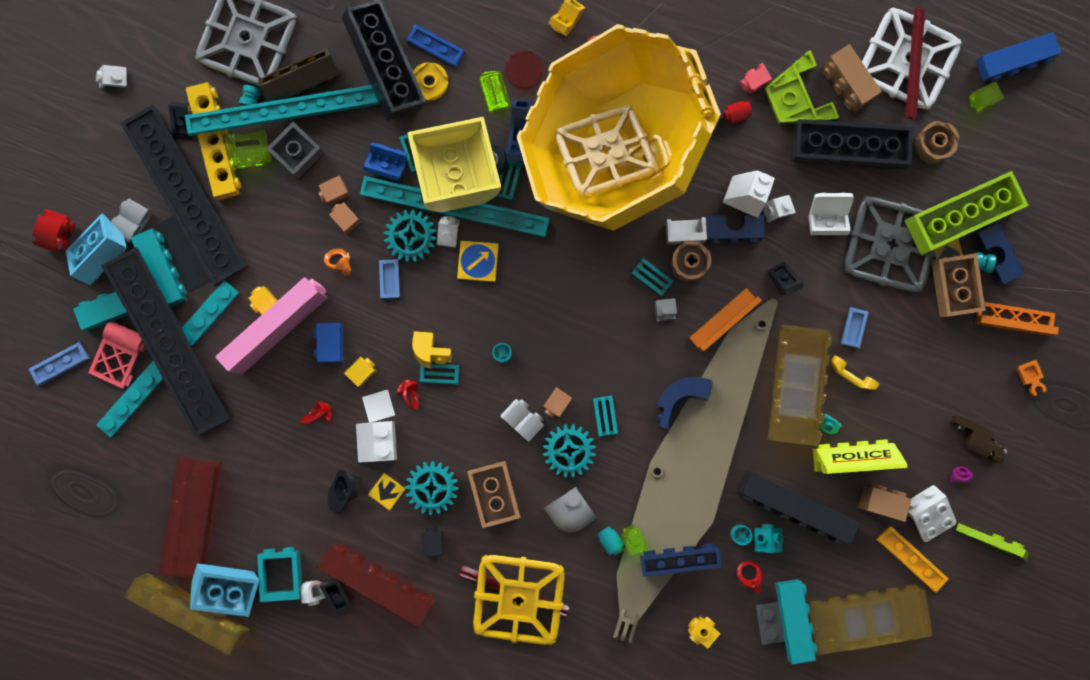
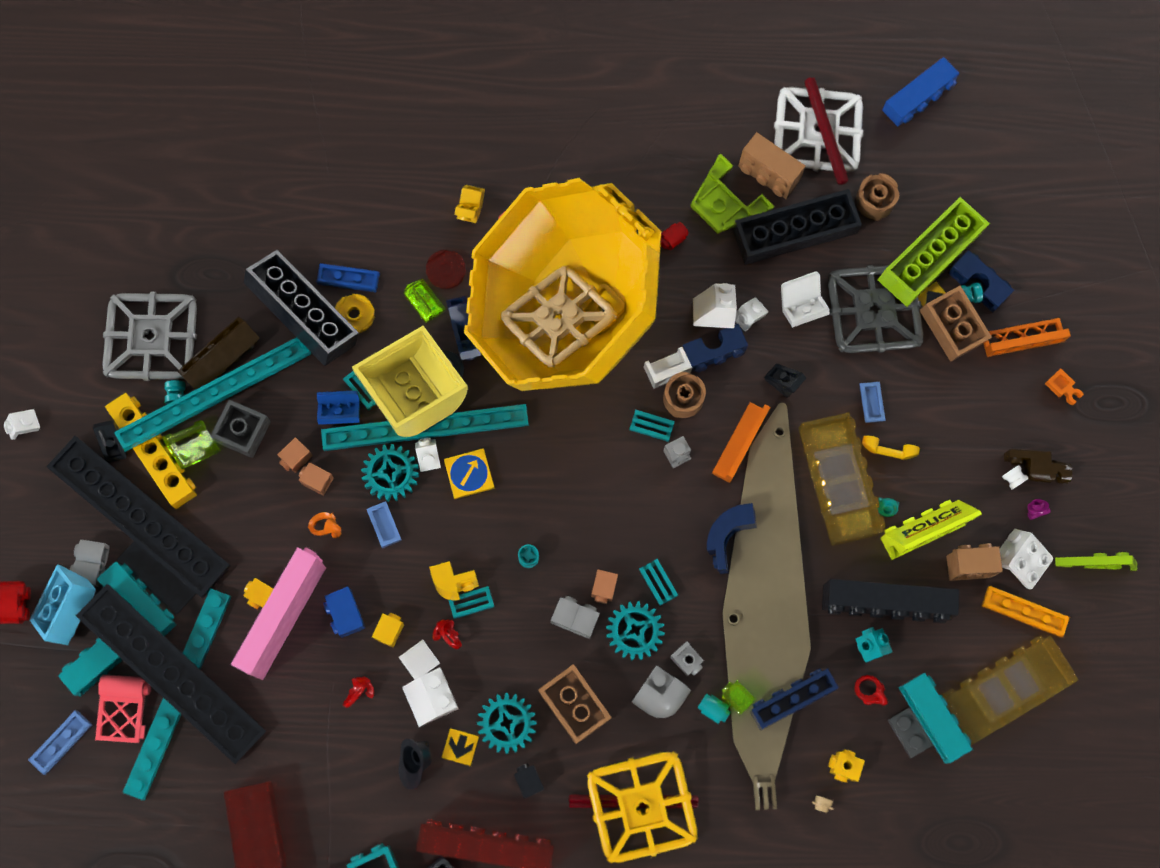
camera: 25 degrees left, 10 degrees down
(503, 195) = (467, 365): teal tile -> none
(598, 486) = (679, 659): none -> light grey brick
(671, 653) = (822, 804): none -> tan plate
(744, 534) = (847, 648): teal wheel -> none
(755, 79) = (679, 198): coral brick -> none
(953, 441) = (1015, 477): none -> white wheel
(986, 97) = (906, 139): clear neon green brick -> none

